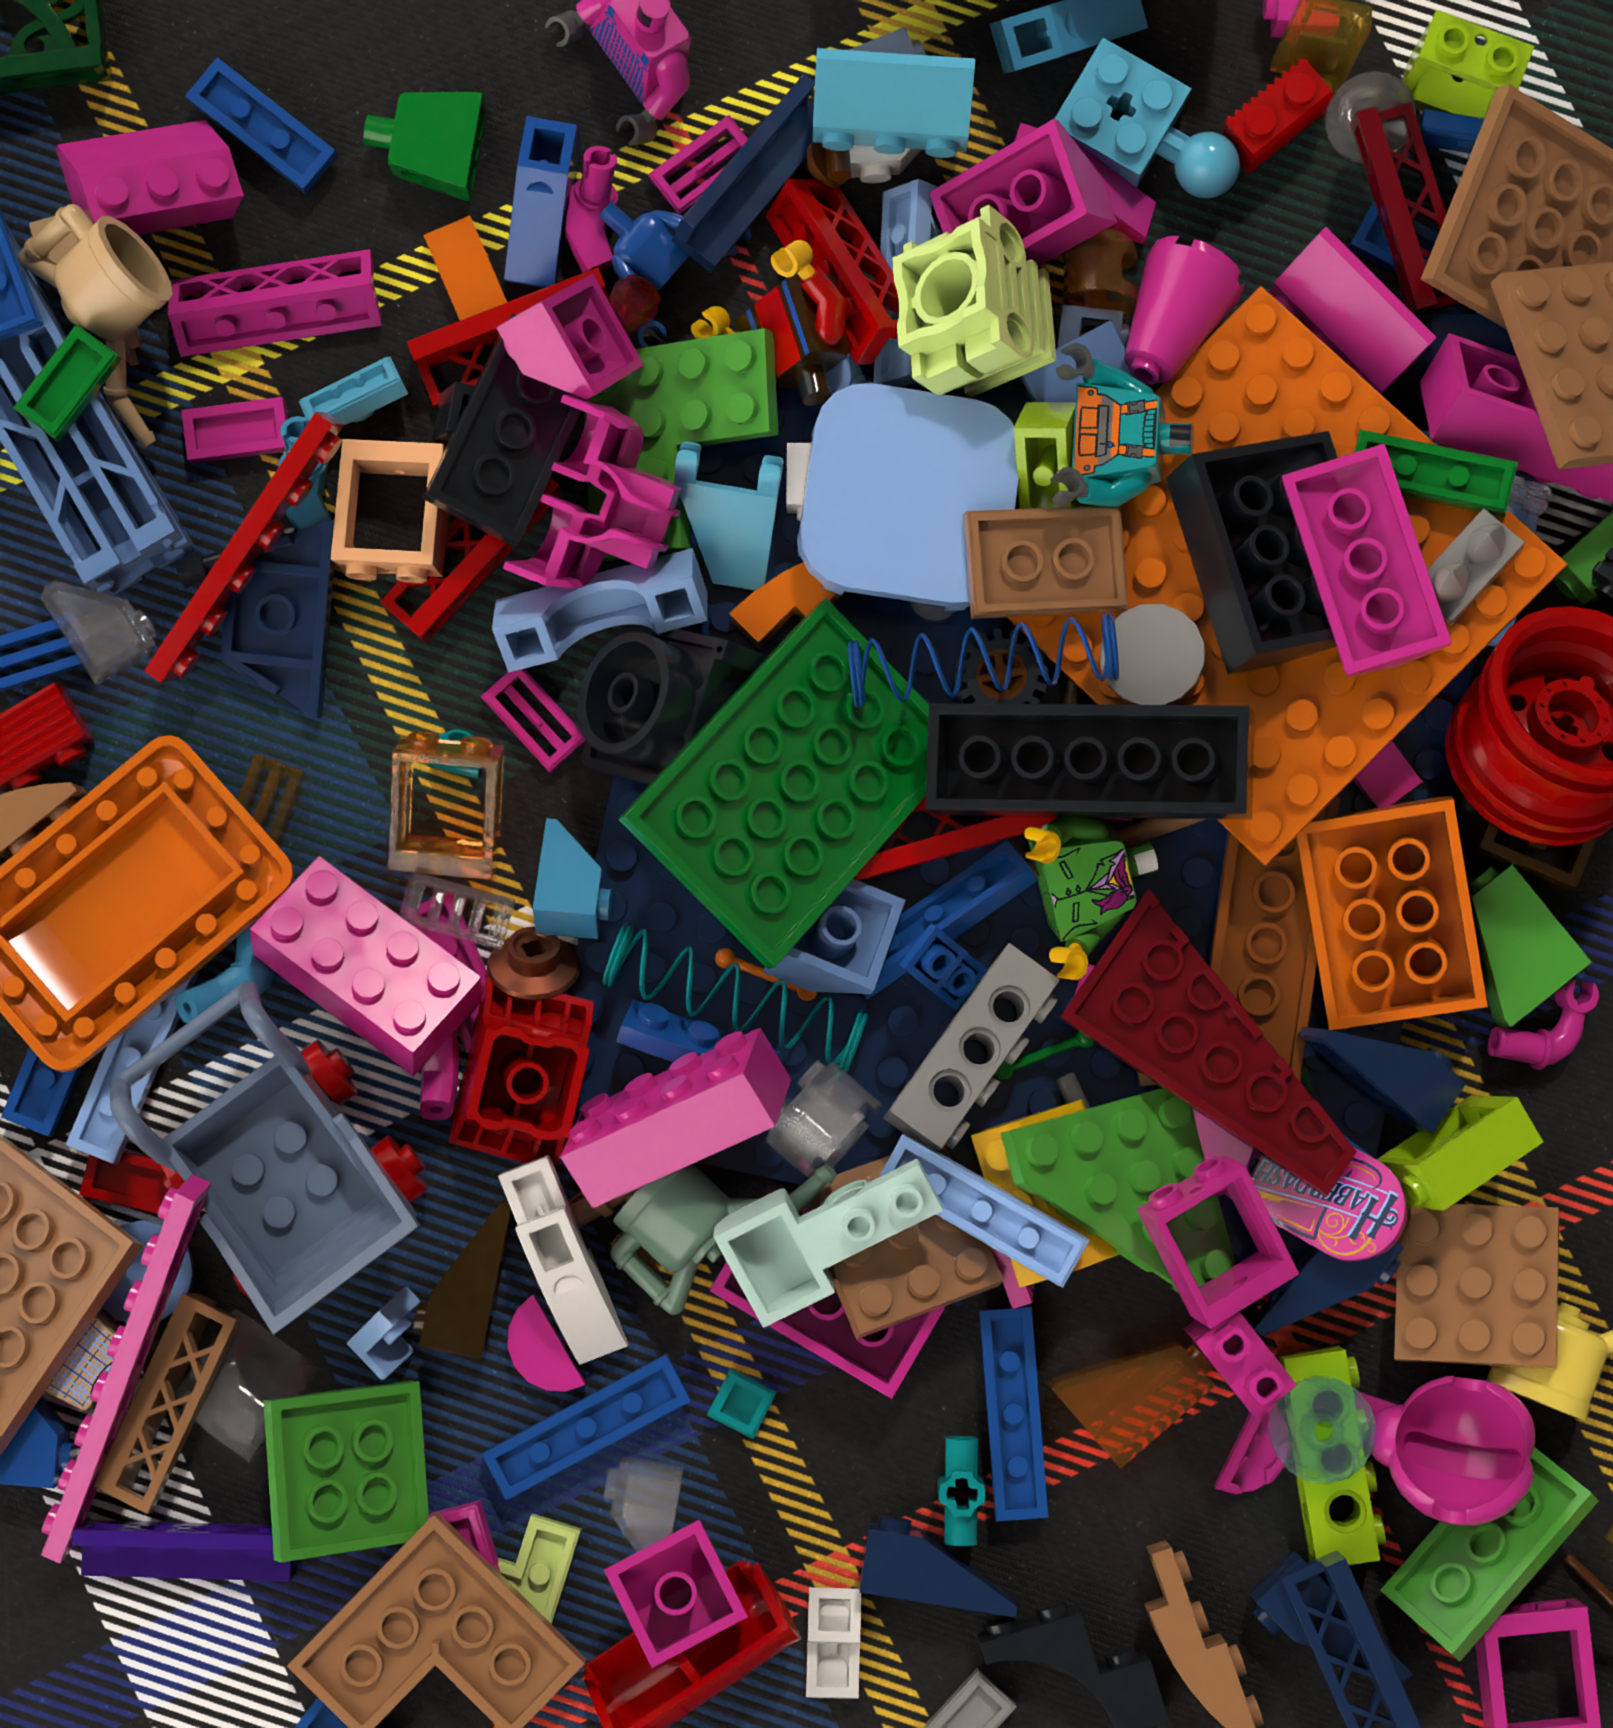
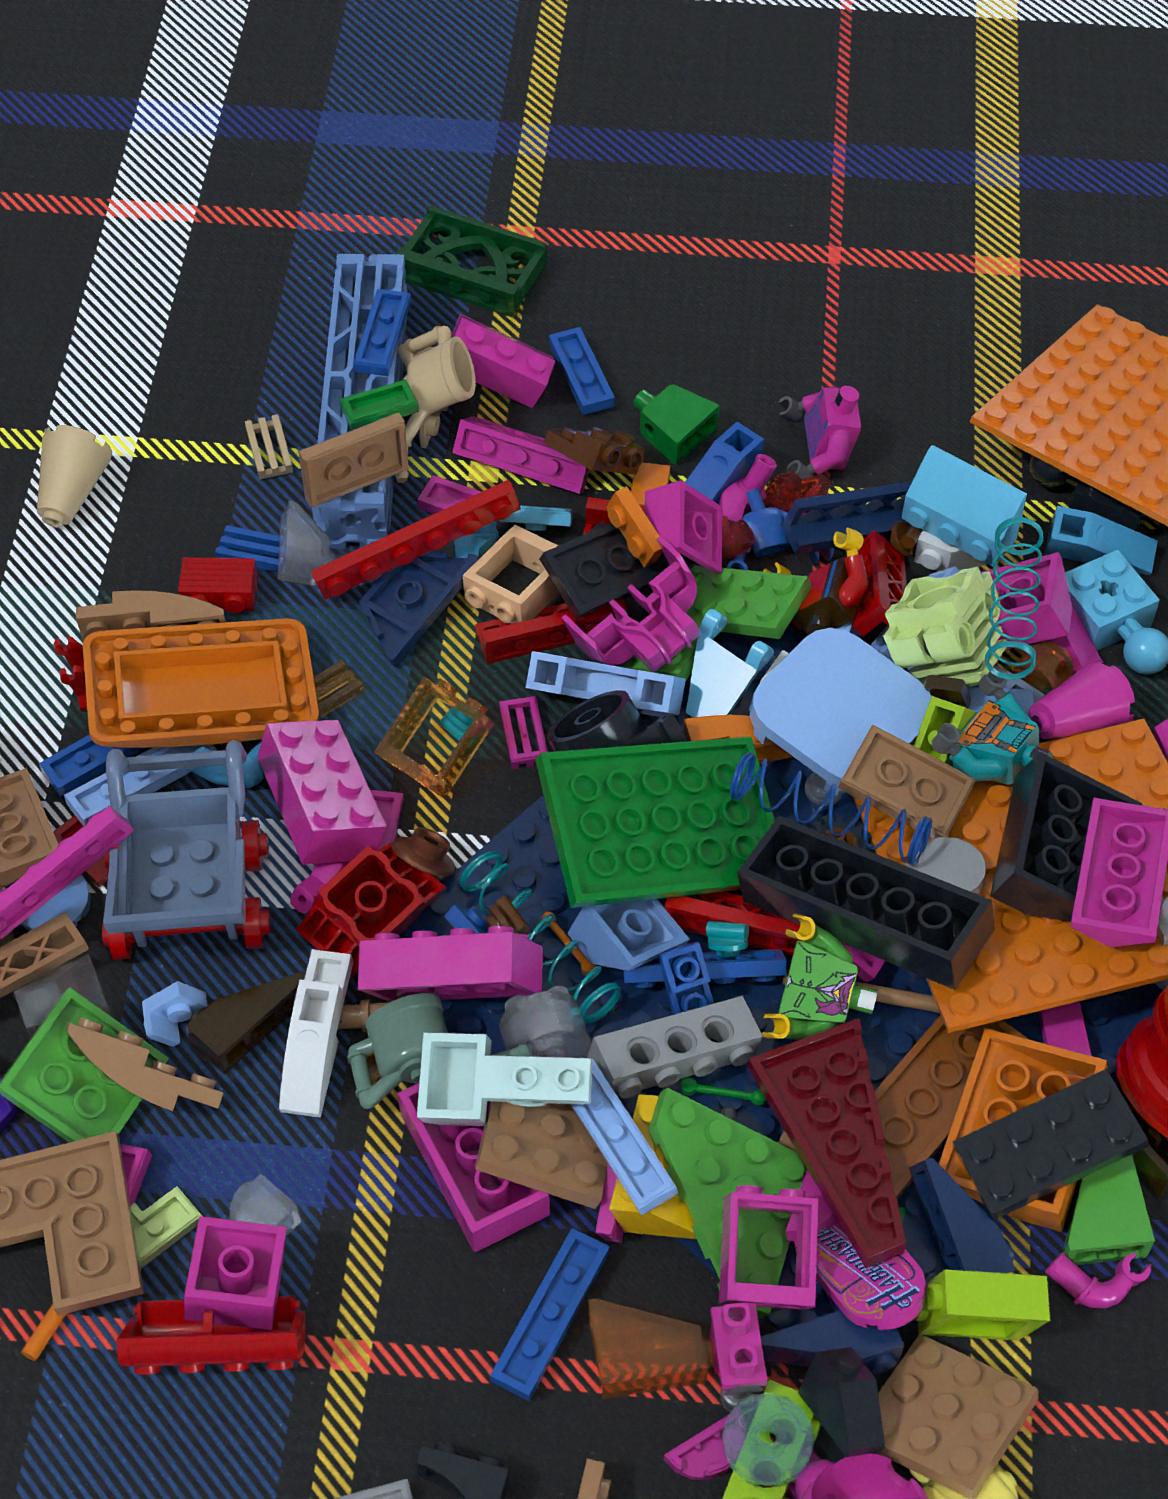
camera: 30 degrees right, 30 degrees down
(109, 510) = (354, 460): none -> medium nougat tile
(372, 264) = (598, 449): none -> reddish brown plate
(393, 1441) = (124, 1063): none -> medium nougat slope
(496, 377) = (635, 526): none -> orange plate
(499, 923) = (390, 773): clear slope -> none
(539, 1350) = (259, 1088): dark pink tile -> none
(568, 888) = (475, 819): dark azure slope -> none
(586, 1426) = (255, 1150): blue plate -> none
(659, 174) = (788, 487): none -> clear red slope
(695, 1016) = (505, 914): none -> reddish brown plate
(741, 1403) = (368, 1200): teal tile -> none
(833, 1643) = (319, 1397): white slope -> none
(916, 1568) = (409, 1373): dark blue slope -> none
(946, 875) = (727, 938): none -> teal plate
(961, 1518) = (467, 1357): teal axle -> none
(1018, 392) = (948, 689): none -> dark brown tile
(1082, 333) = (1027, 648): none -> teal piece
(1381, 1350) = (844, 1400): none -> black slope
(1441, 934) = (1050, 1144): none -> black plate

